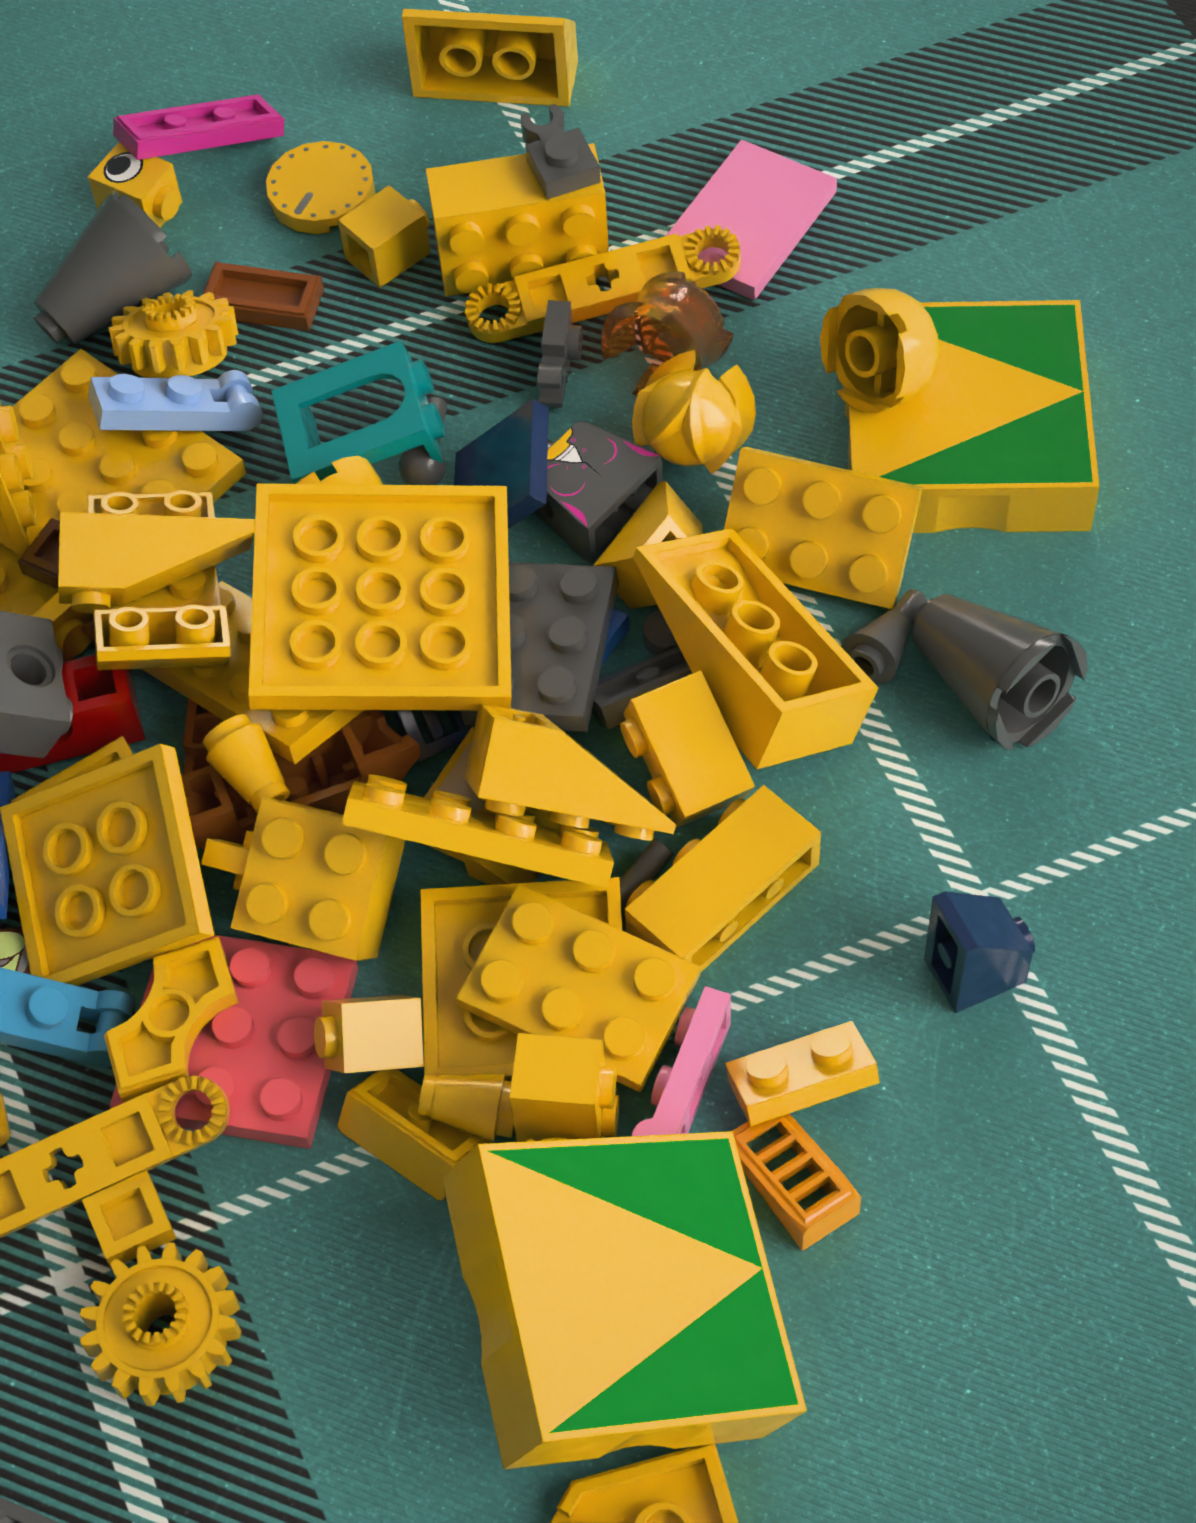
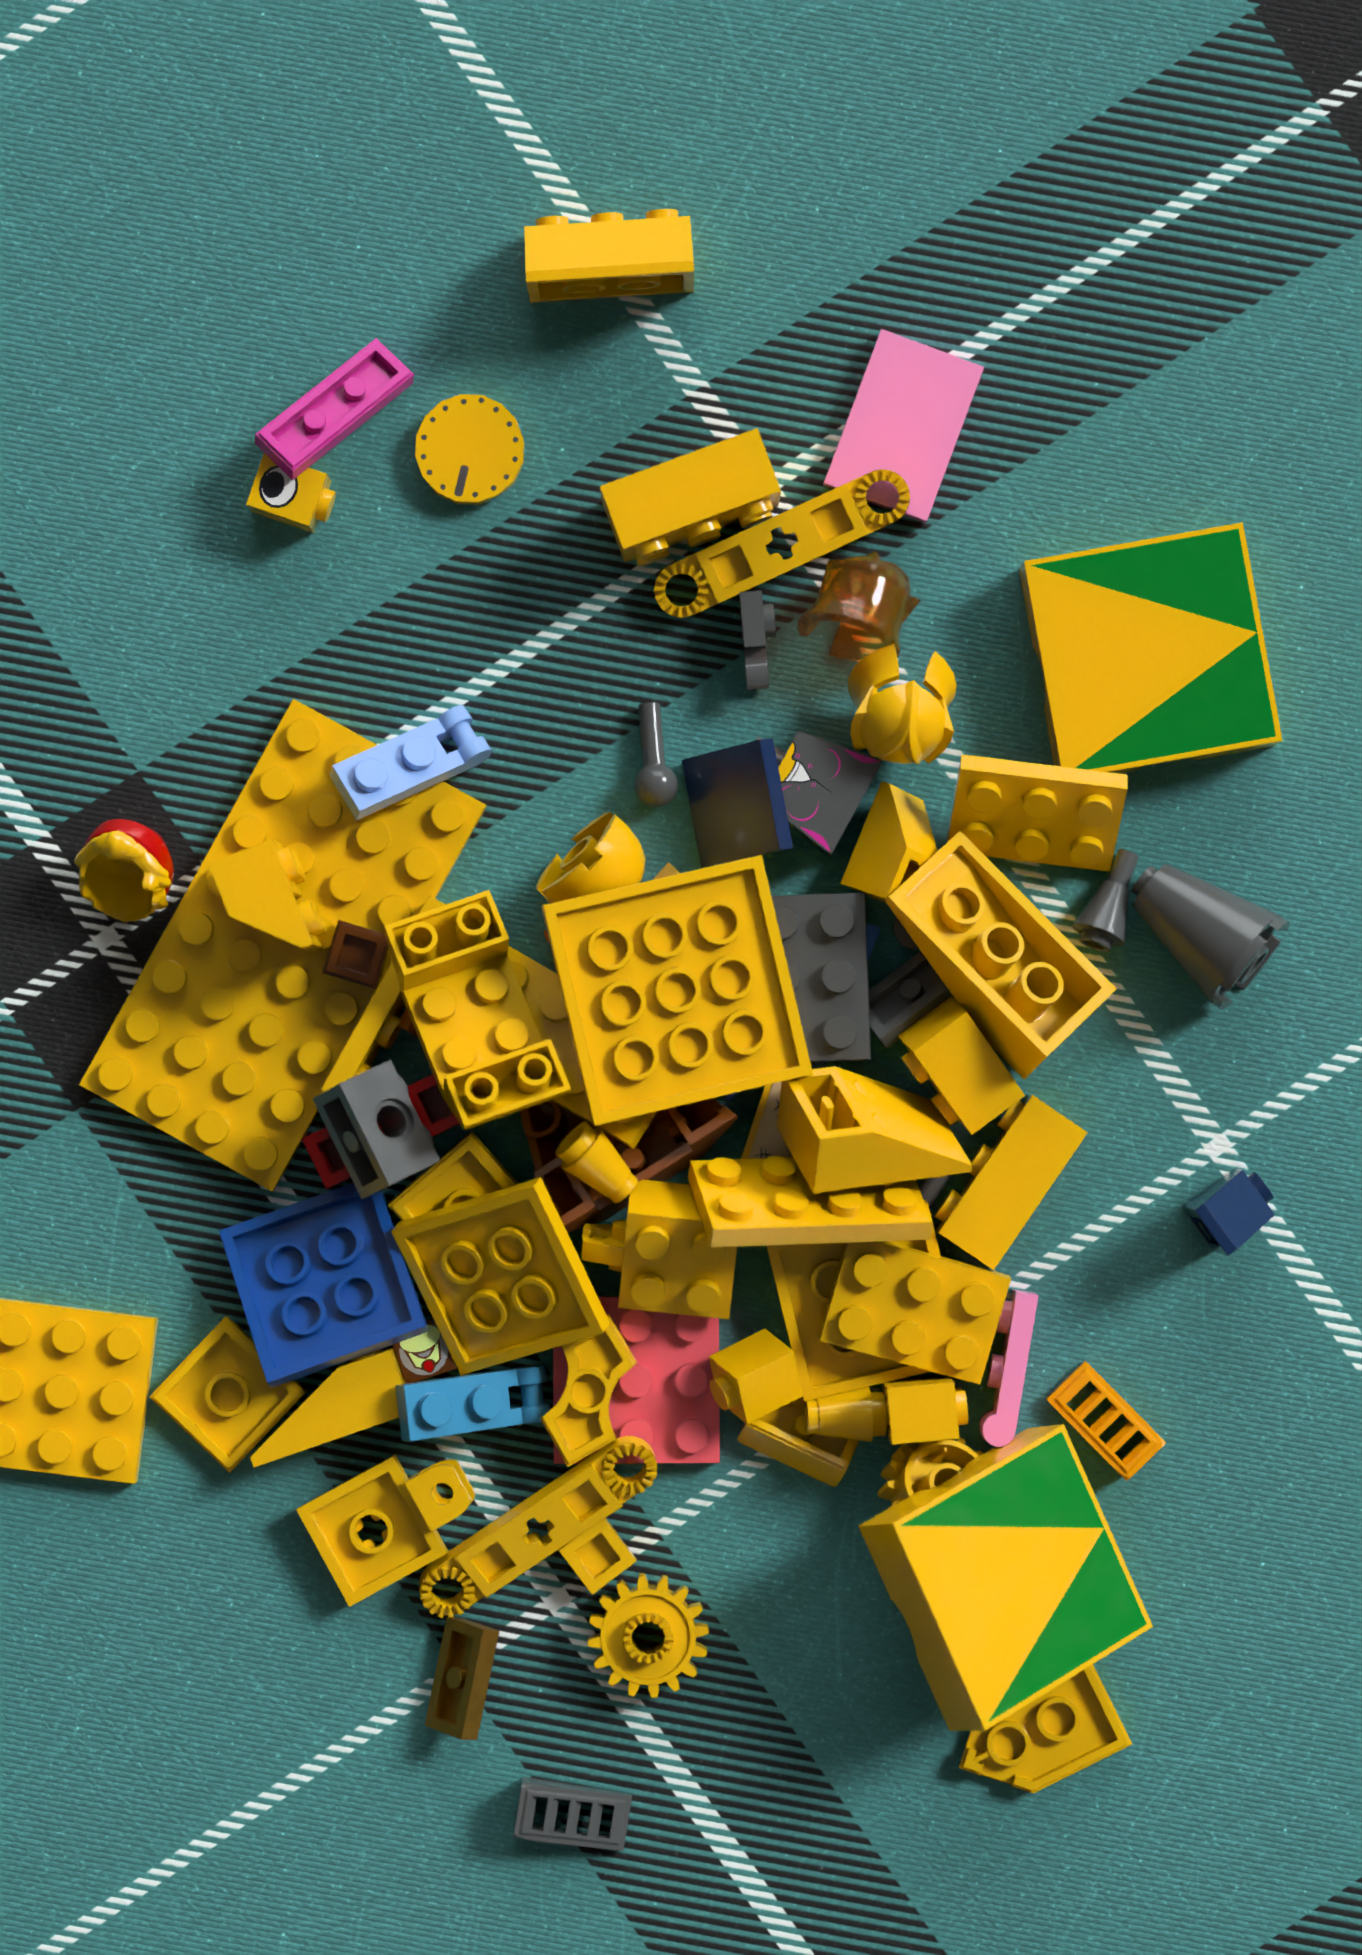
camera: 15 degrees left, 30 degrees up
(108, 268) = (300, 616): dark grey cone -> none
(129, 556) = (455, 999): yellow slope -> none
(174, 334) = (389, 705): yellow gear -> none
(267, 295) = (447, 597): dark orange tile -> none
(385, 235) = (556, 513): yellow brick -> none
(409, 427) = (649, 774): teal panel -> none
(558, 158) = (732, 462): dark grey plate -> none
(802, 1073) = (1101, 1336): yellow plate -> none
(879, 348) = (1074, 641): yellow cylinder -> none

